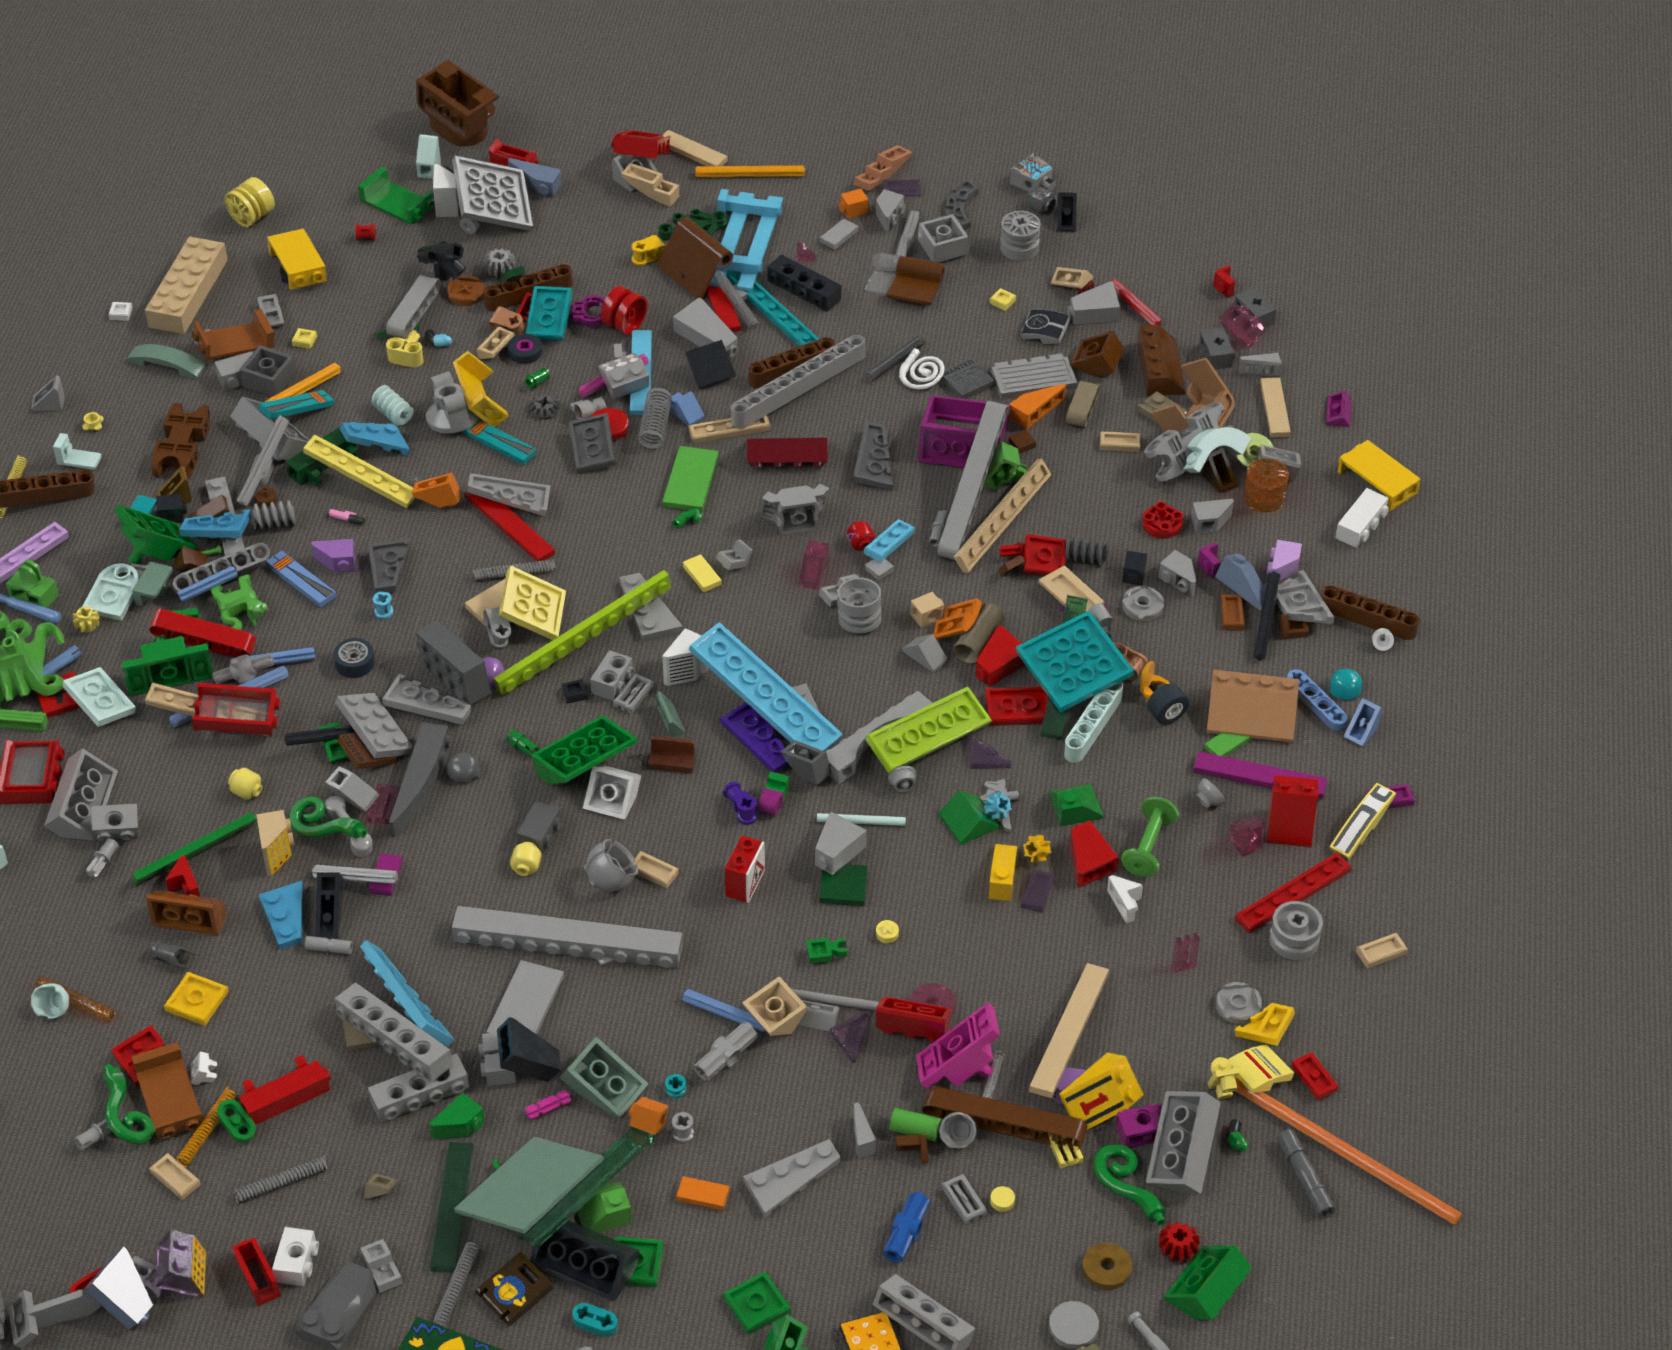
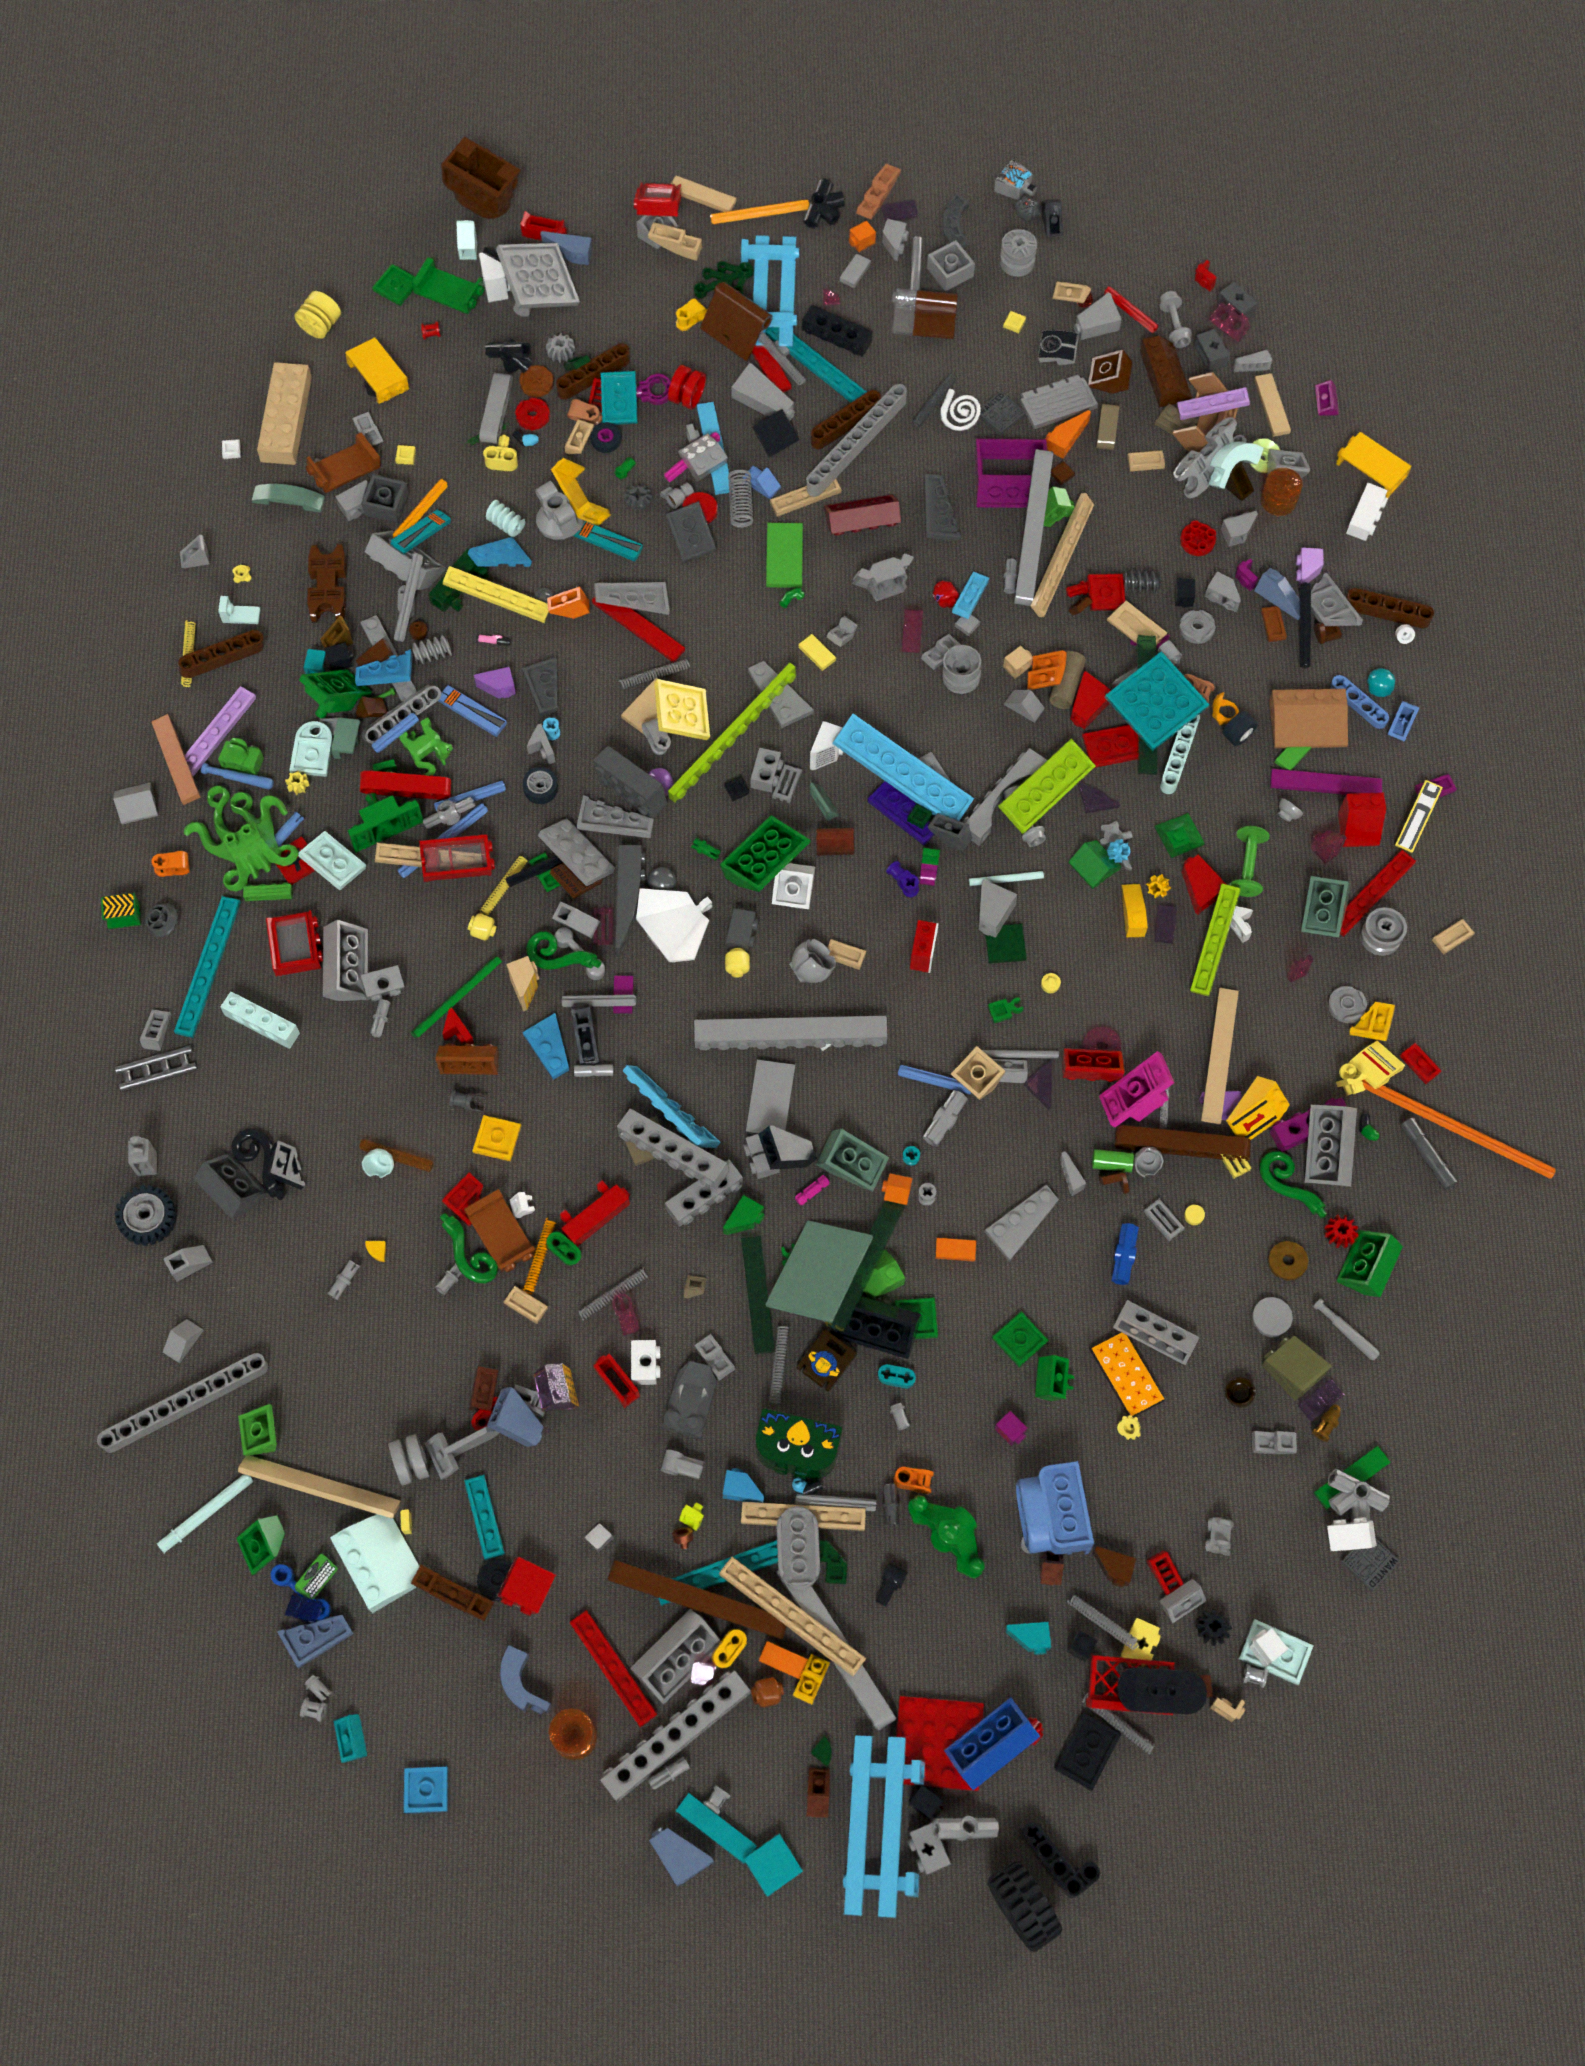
camera: 10 degrees left, 20 degrees up
(21, 1092) = (376, 1249): none -> yellow tile
(94, 1253) = (483, 1389): none -> copper panel
(255, 767) = (503, 887): none -> light yellow piece
(290, 1204) = (627, 1317): none -> clear pink piece
(340, 190) = (394, 285): none -> green tile
(364, 617) = (540, 743): none -> light grey slope
(452, 326) = (532, 422): none -> red tile
(463, 807) = (673, 922): none -> white panel
(774, 741) = (919, 816): none -> dark green tile
(819, 171) = (824, 204): none -> black piece
(1090, 910) = (1215, 940): none -> lime plate
(1183, 329) = (1181, 335): none -> light grey piece
(1205, 393) = (1213, 403): none -> lavender tile
(1232, 893) = (1325, 906): none -> sand green slope

